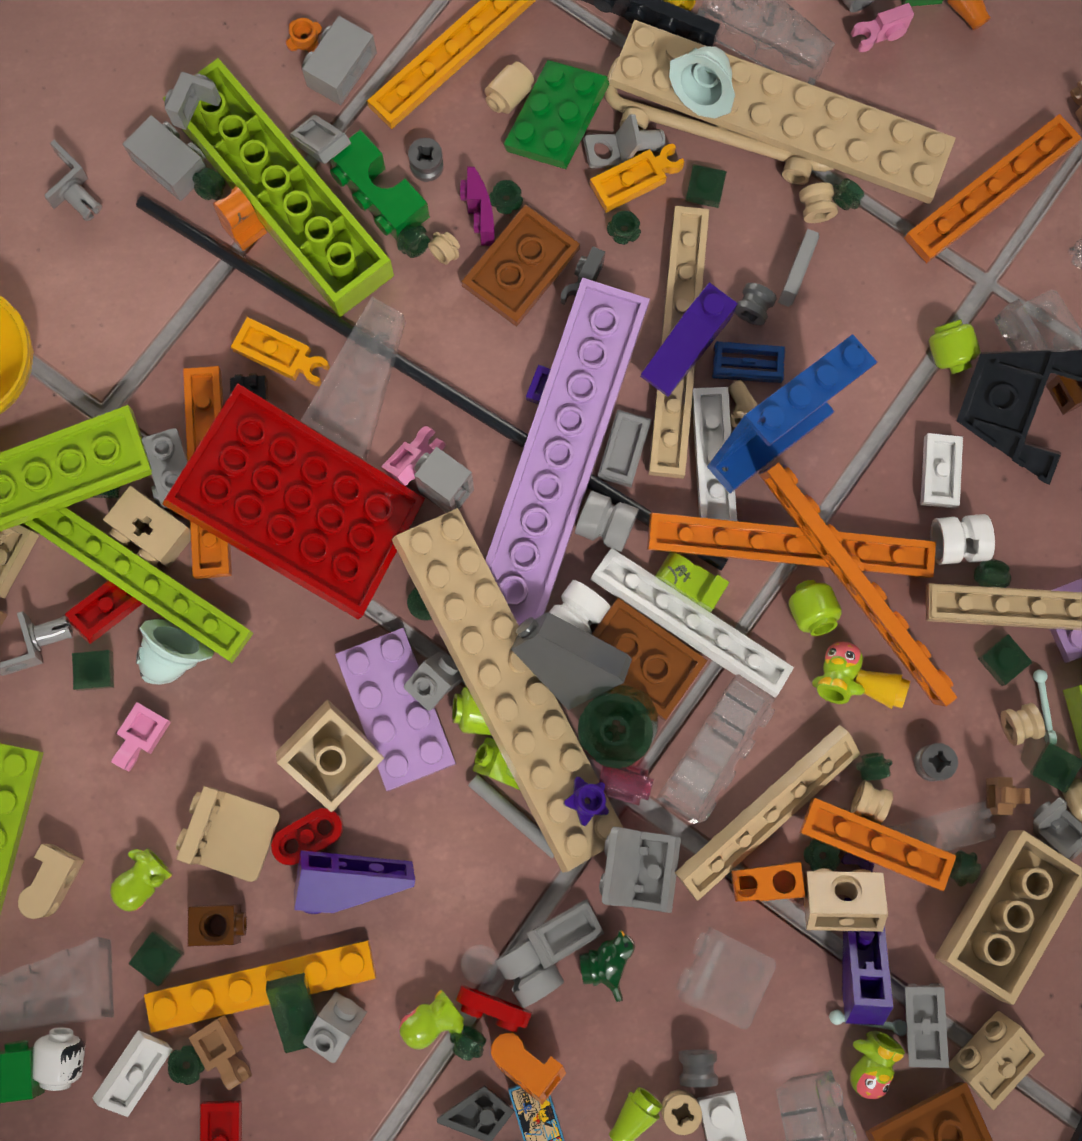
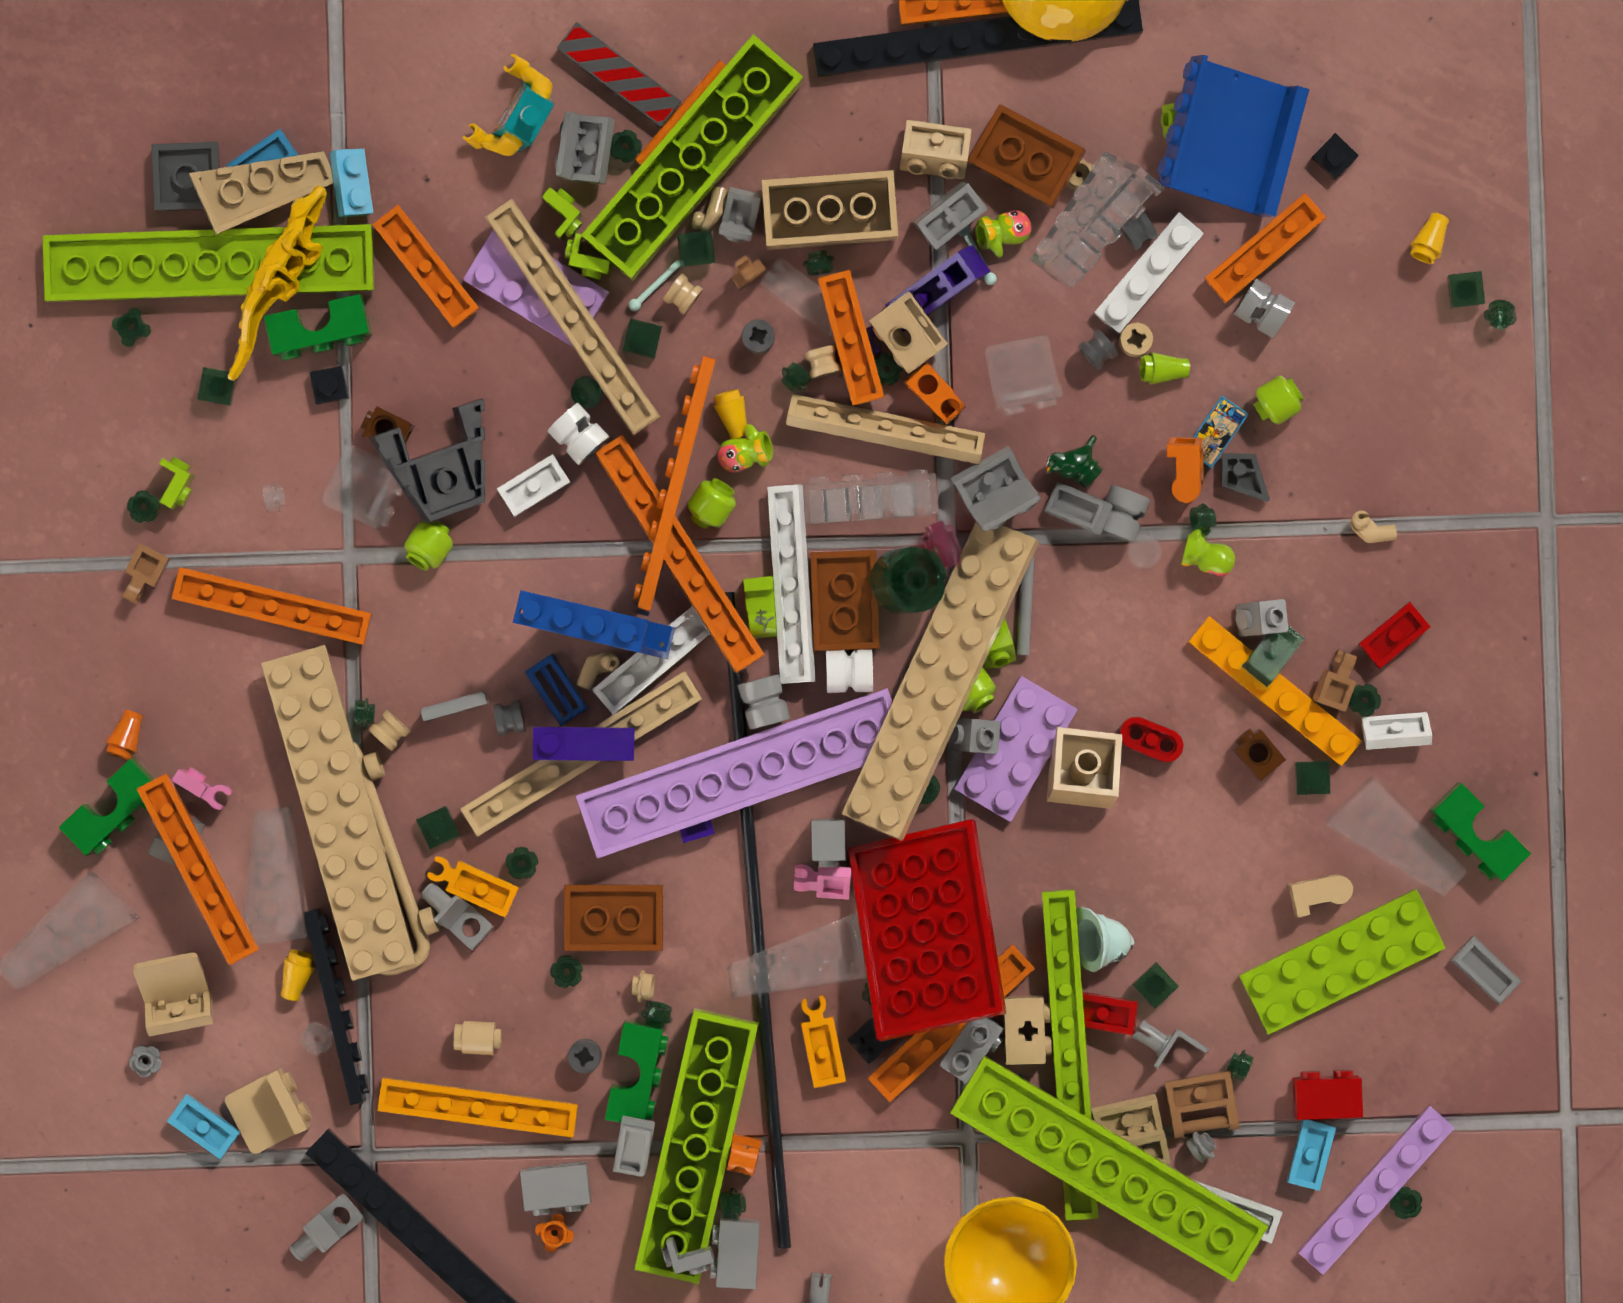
camera: 120 degrees left, 10 degrees up
(58, 1059) = (1426, 788): white head -> none
(139, 883) = (1274, 830): lime animal -> none
(142, 731) = (1169, 914): bright pink plate -> none
(228, 834) = (1191, 794): tan bracket -> none
(343, 881) = (1161, 688): slope -> none
(478, 1002) = (1163, 506): red plate -> none
(479, 204) = (586, 992): magenta slope -> none
(556, 114) = (470, 984): green plate -> none
(569, 659) = (889, 649): dark grey slope -> none
(587, 268) = (581, 863): dark grey plate -> none
(597, 798) = (968, 562): dark purple plate -> none
(624, 448) = (695, 732): light grey tile -> none
(704, 81) = (370, 883): light aqua piece -> none

